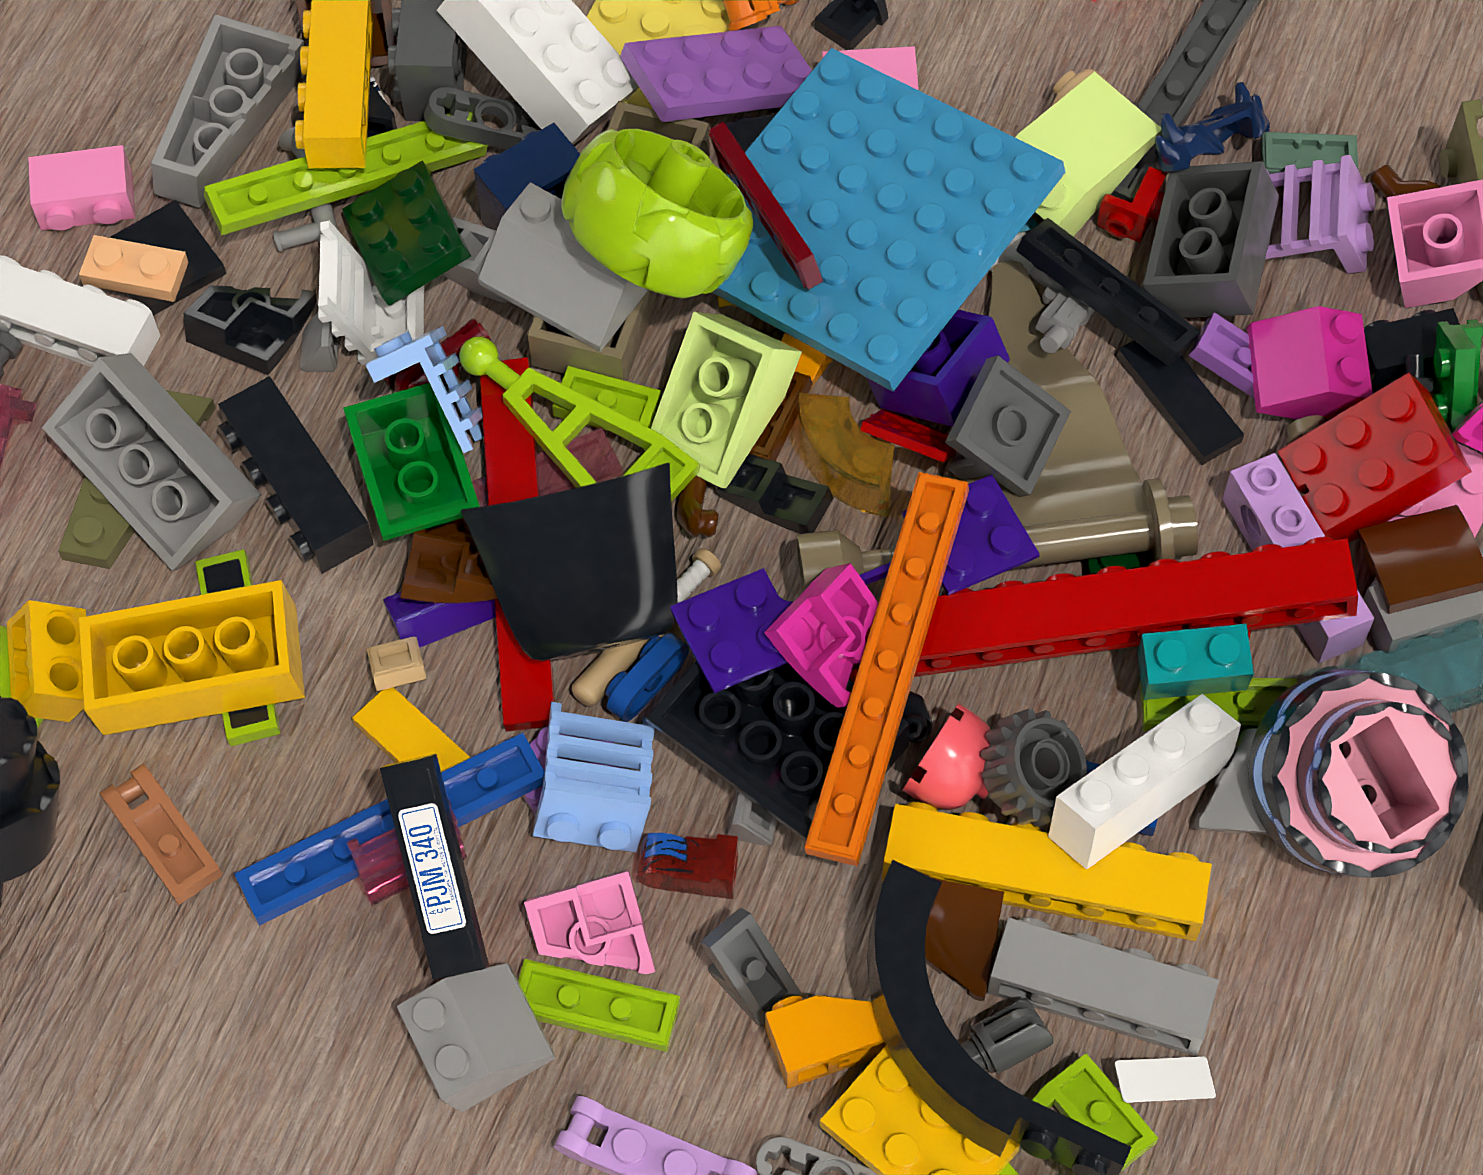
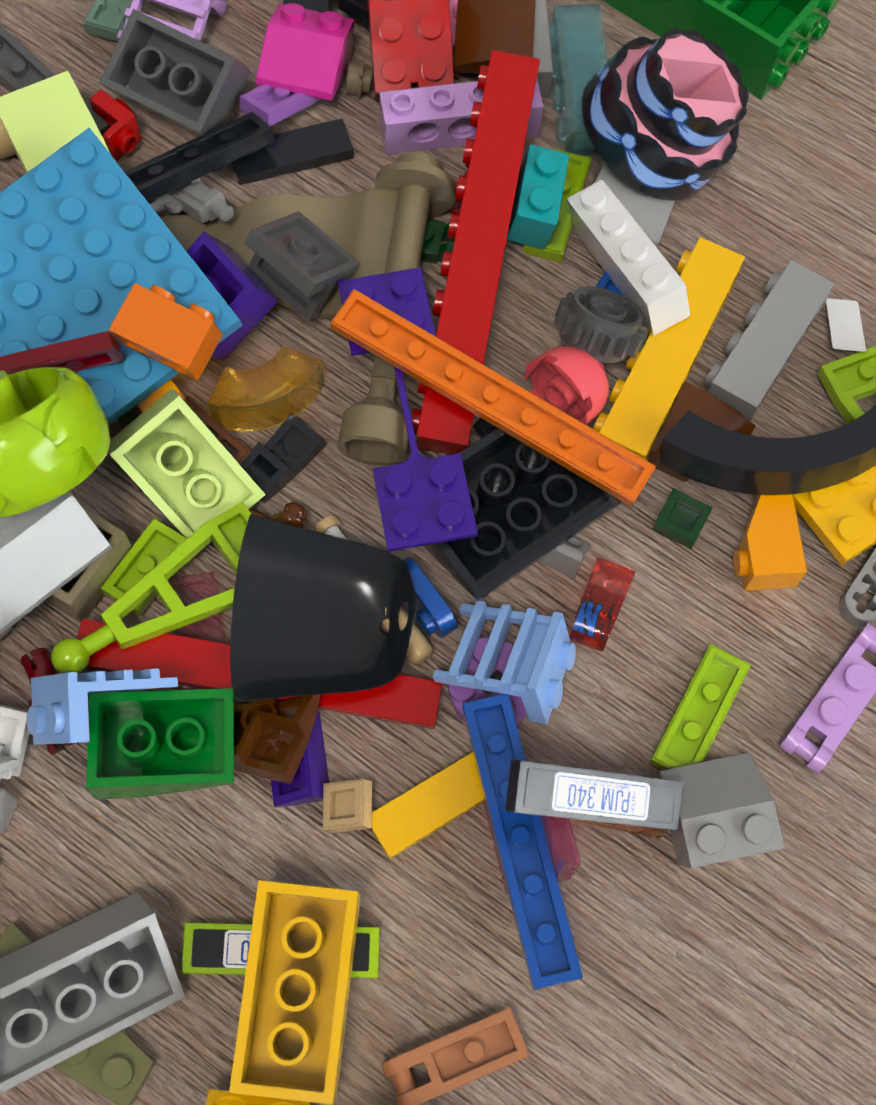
camera: 80 degrees left, 5 degrees up
(295, 475) = (121, 858): black brick -> none
(593, 924) = (629, 698): bright pink slope -> none
(748, 965) = (700, 585): dark grey slope -> none
(827, 631) = (448, 431): dark pink slope -> none
(828, 932) = (682, 518): none -> dark green plate
(840, 311) = (166, 330): none -> orange brick
(910, 434) = (268, 328): red window -> none
(1008, 1037) = (800, 427): dark grey arm -> none
(1185, 142) = (74, 51): dark blue piece -> none

